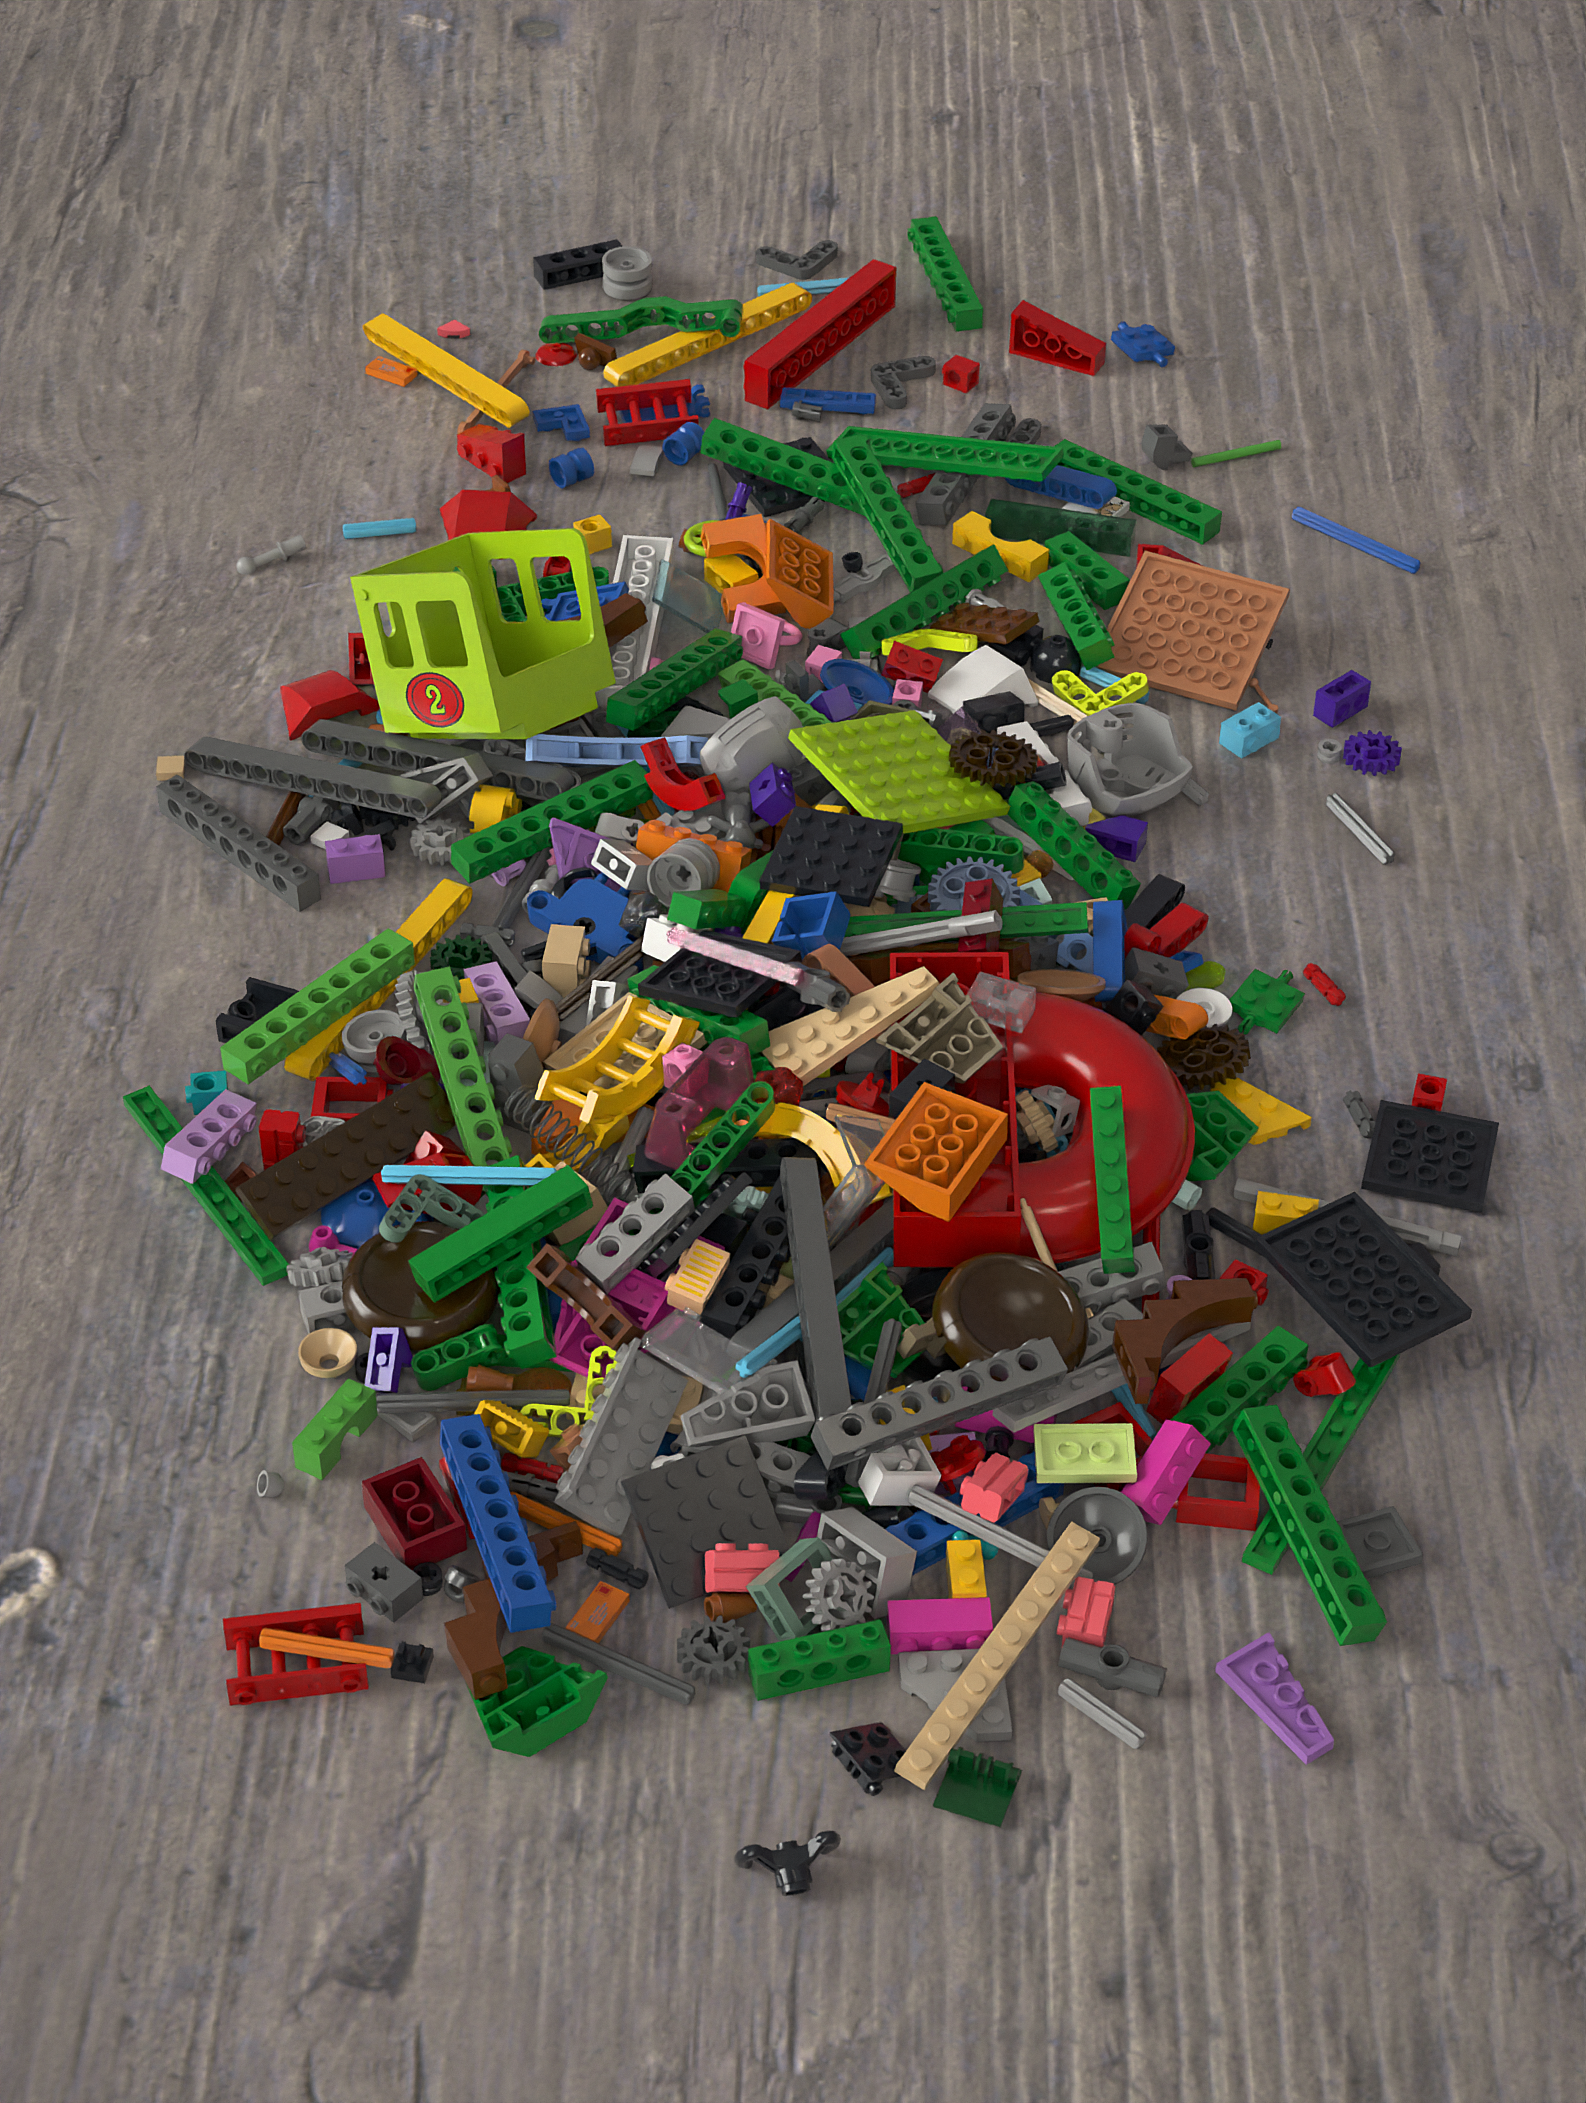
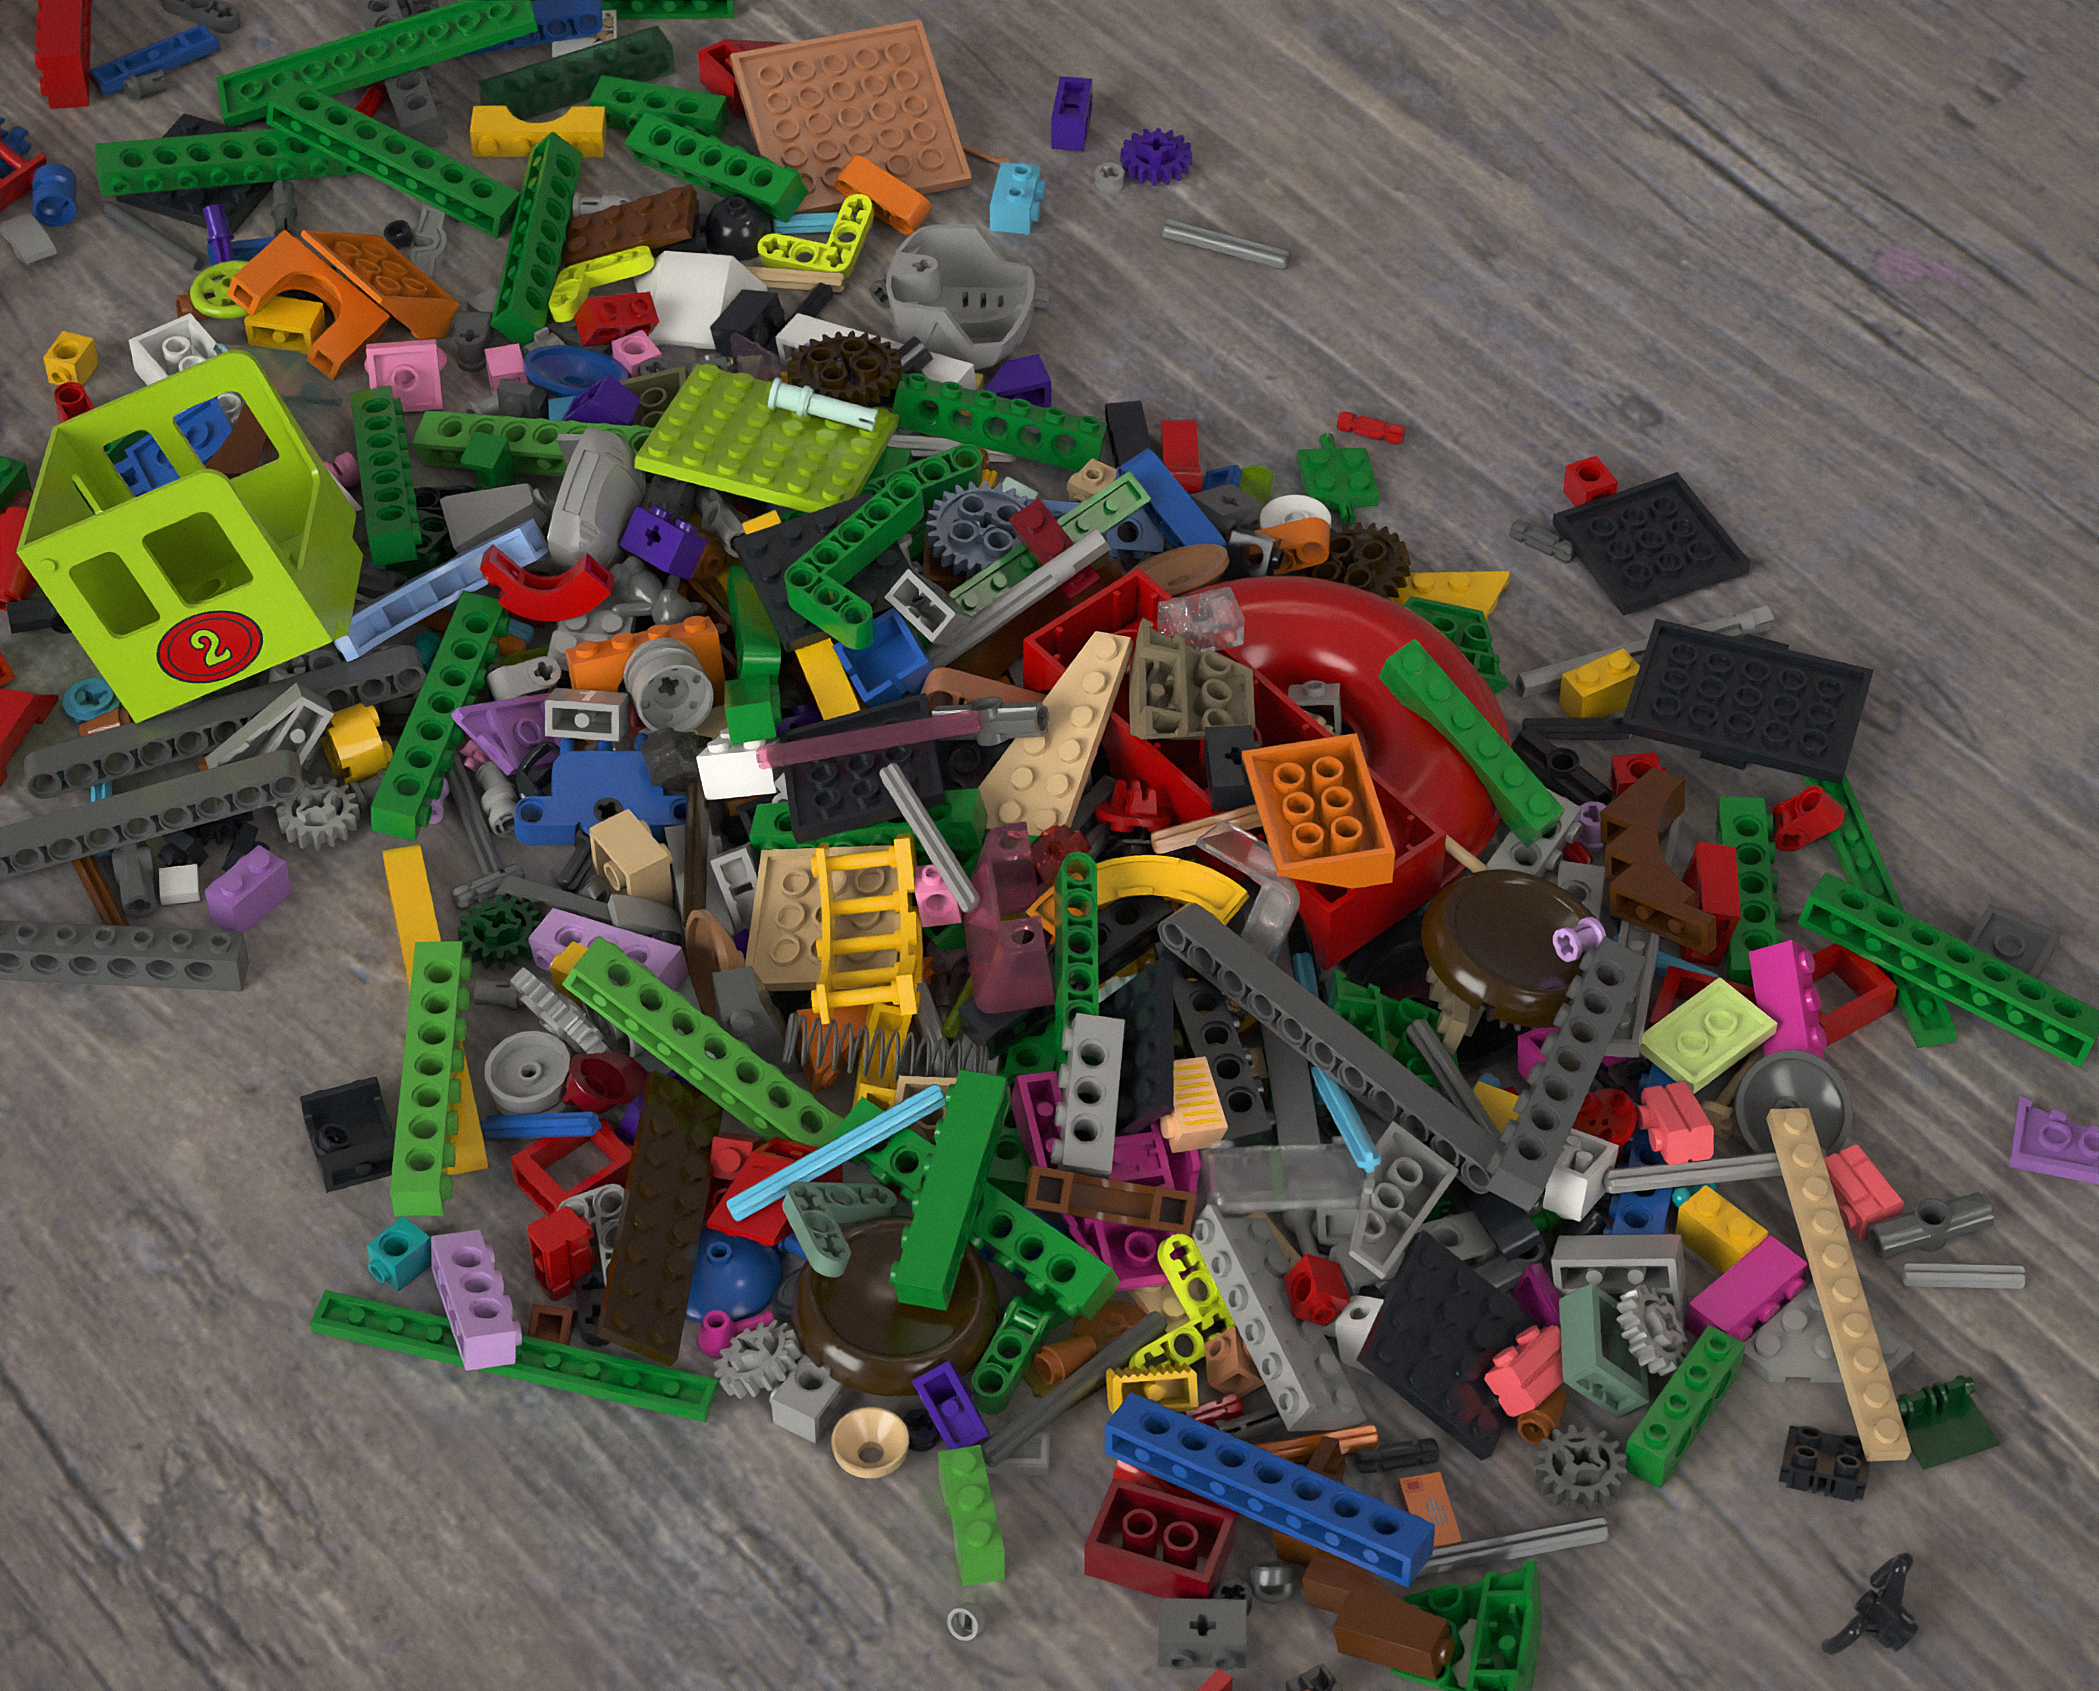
camera: 40 degrees left, 5 degrees up
(658, 1434) = (1316, 1289): none -> red brick
(698, 1024) = (930, 838): none -> light grey axle
(839, 845) = (818, 577): none -> green beam
(857, 906) = (935, 614): none -> light grey torso
(942, 760) = (806, 402): none -> light aqua pin
(1043, 1330) = (1576, 940): none -> lavender bush
(1162, 683) = (891, 199): none -> orange beam

